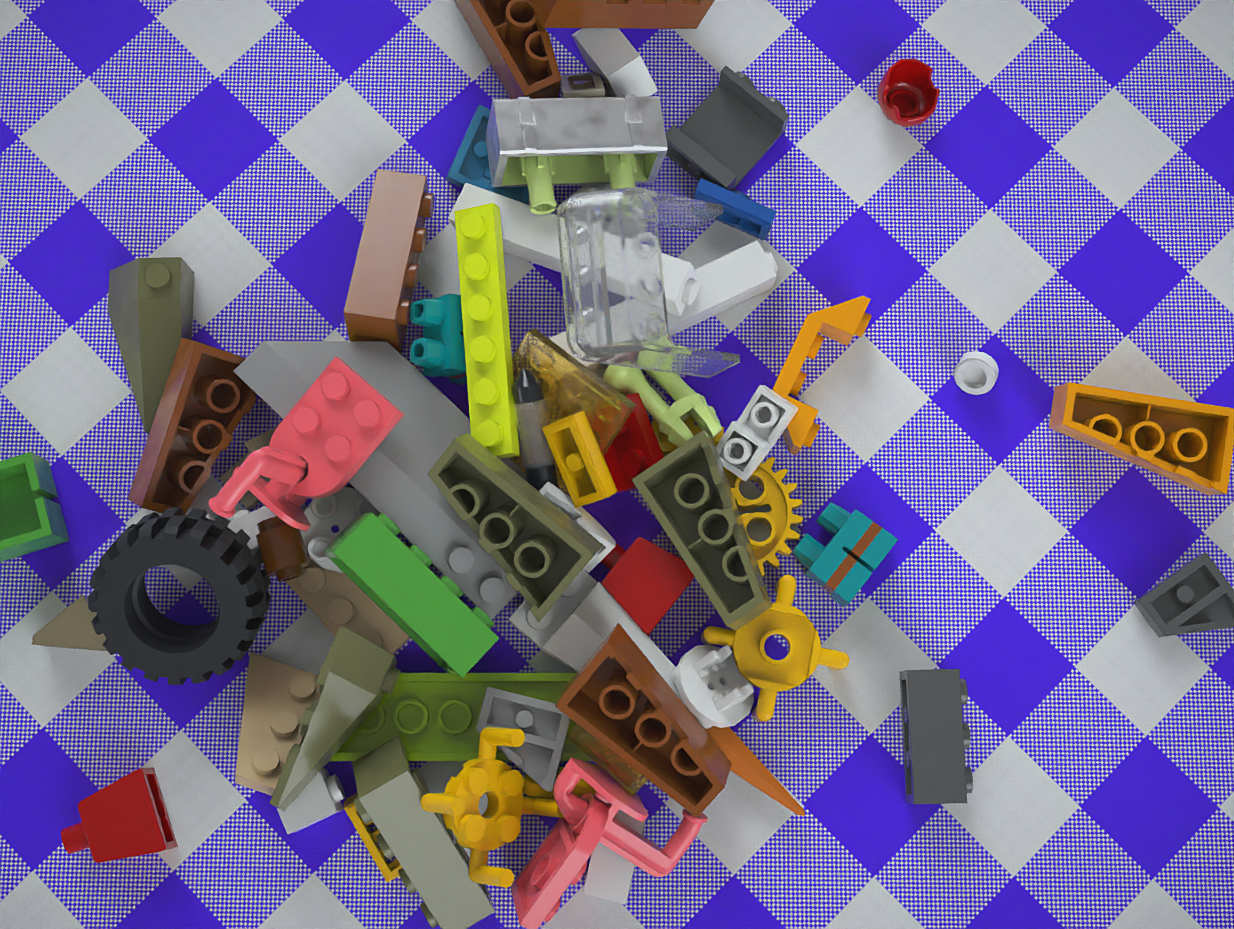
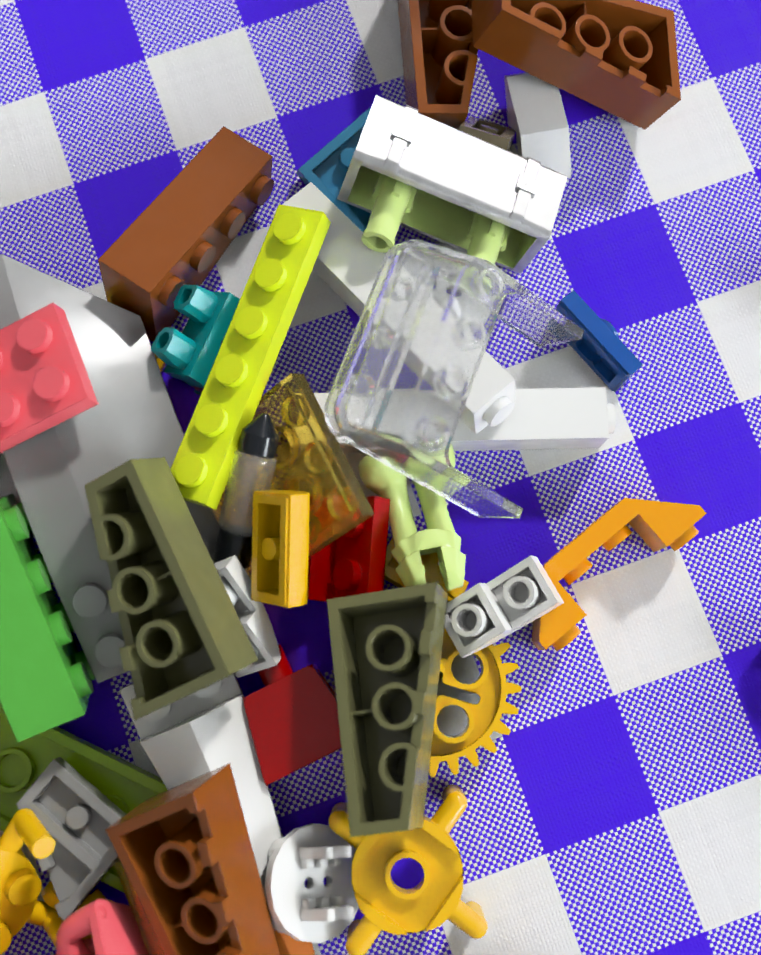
camera: 30 degrees right, 0 degrees up
(727, 132) = (628, 254): dark grey panel -> none
(848, 557) = (517, 801): teal hips -> none

